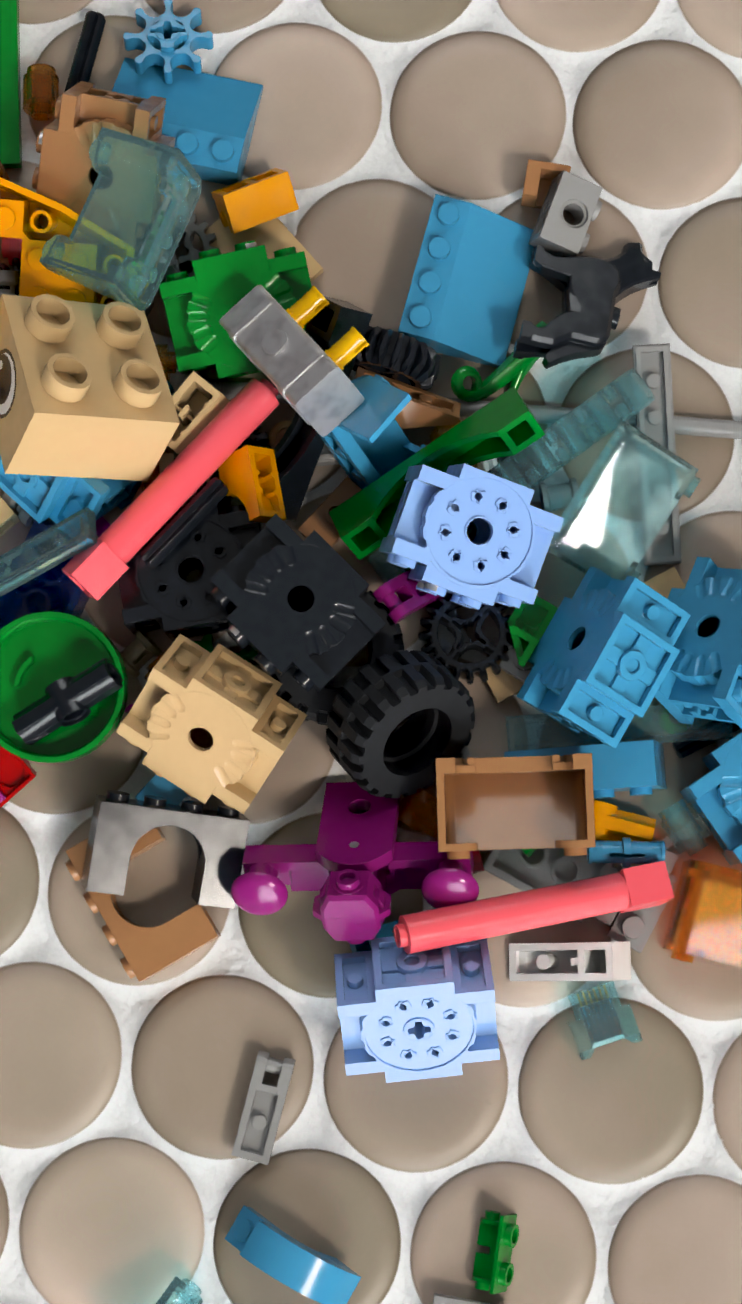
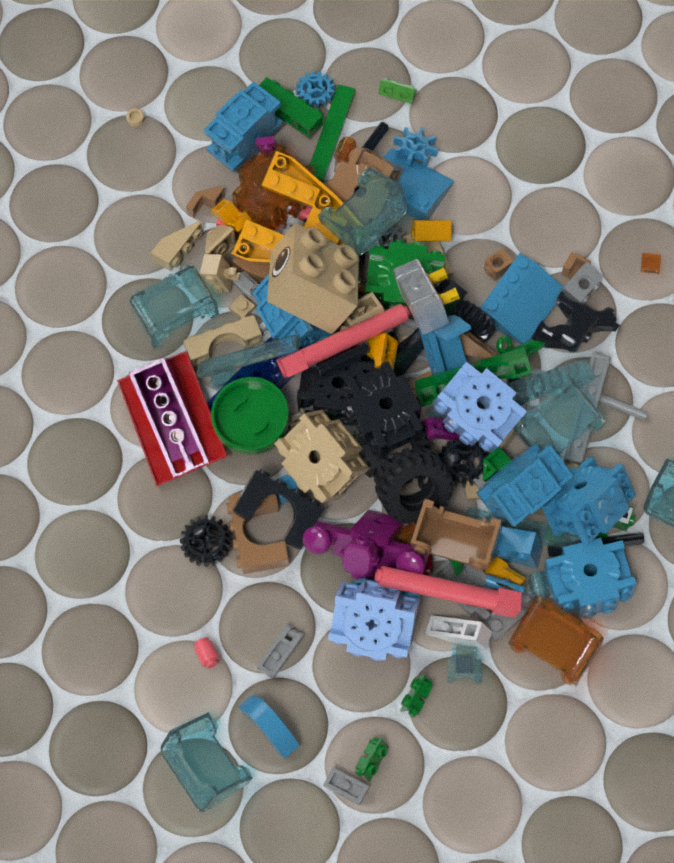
camera: 15 degrees right, 15 degrees down
(58, 962) = (213, 541): none -> black gear
(67, 701) = (256, 422): black piece -> none
(132, 1159) = (206, 652): none -> coral brick
(401, 211) = (500, 257): none -> medium nougat brick
(530, 1123) = (419, 688): none -> green hinge
(675, 130) = (650, 263): none -> clear orange tile

